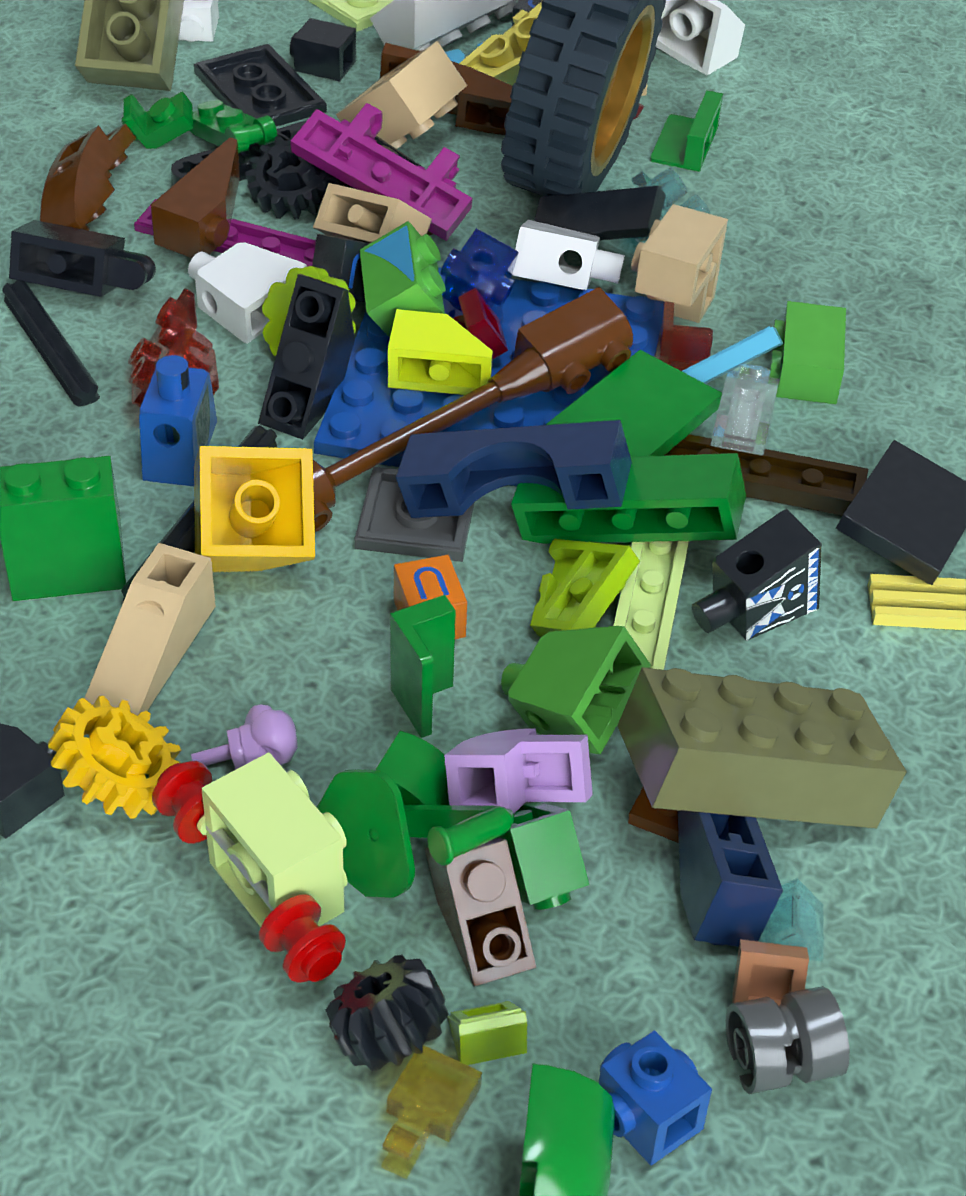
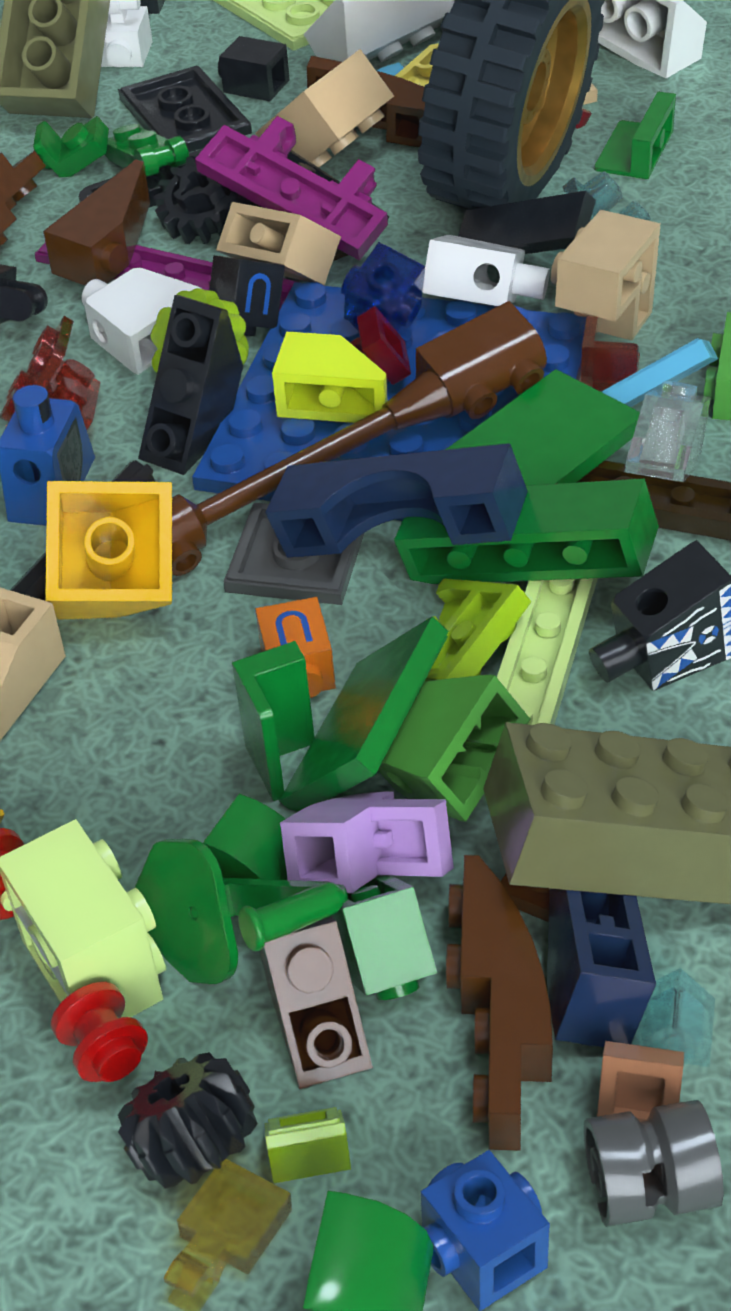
camera: 10 degrees right, 0 degrees up
(262, 733) = (98, 803): lavender piece -> none
(401, 275) = (297, 295): bright green brick -> none
(502, 663) = (365, 717): none -> green tile
(651, 901) = (505, 992): none -> reddish brown slope

